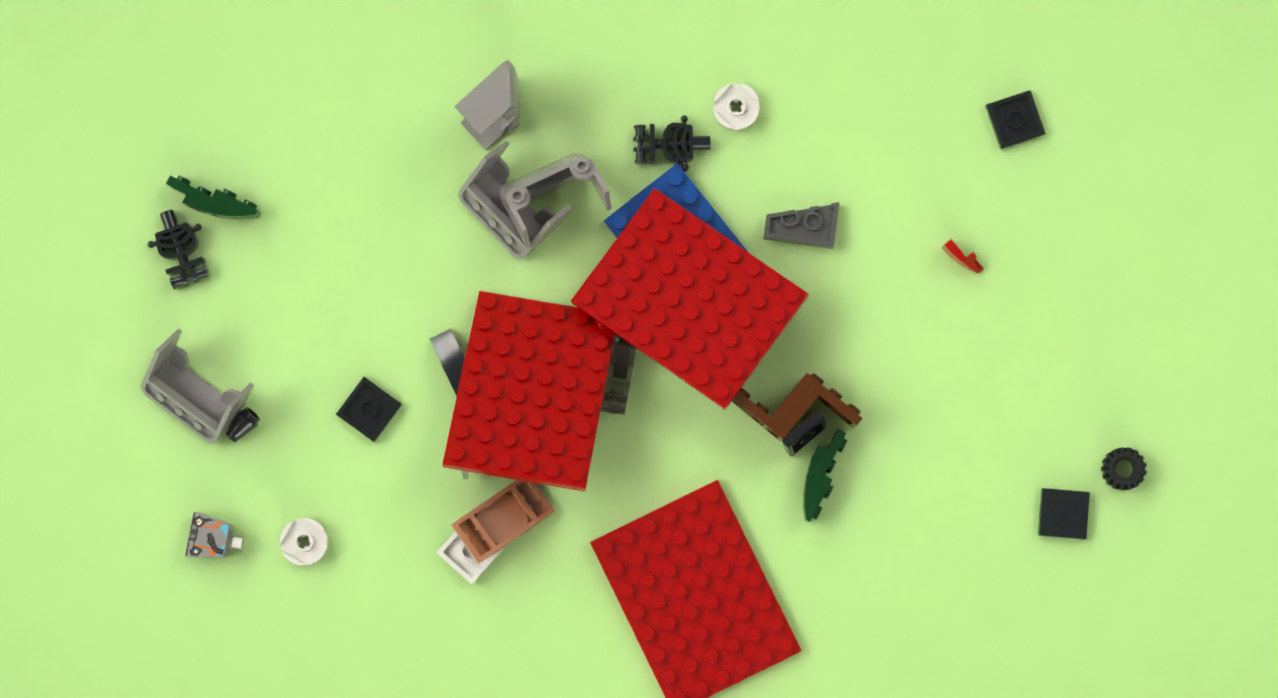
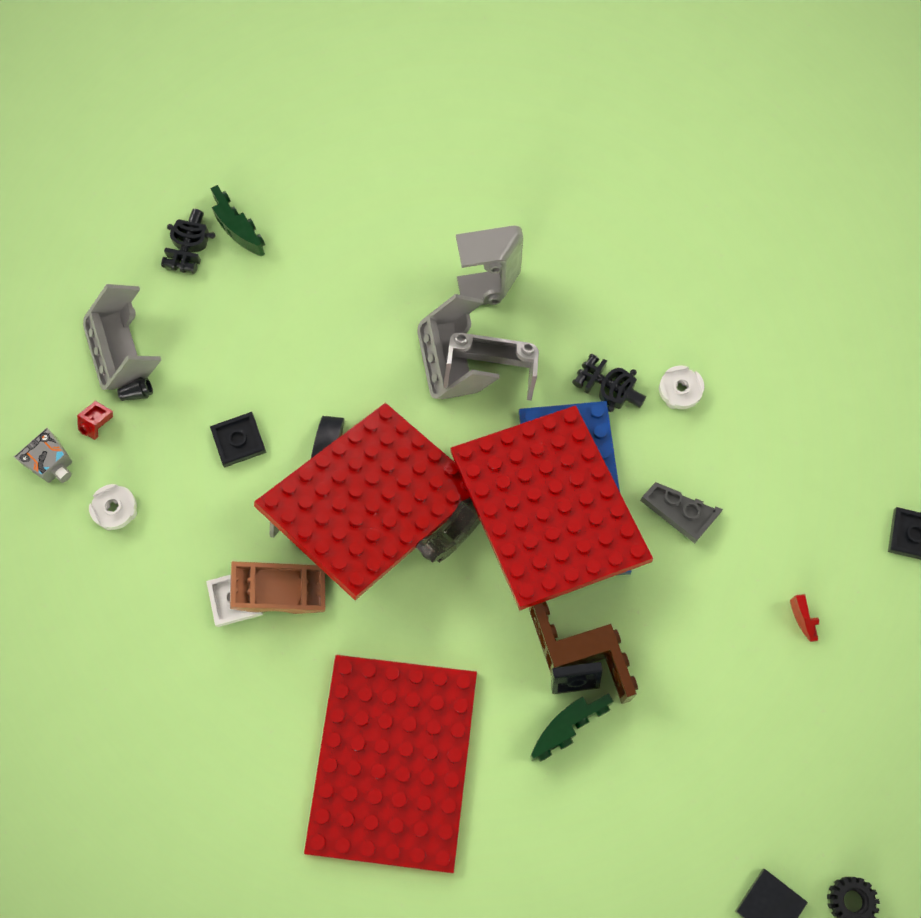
camera: 35 degrees right, 15 degrees down
(225, 475) = (93, 418): none -> red bracket

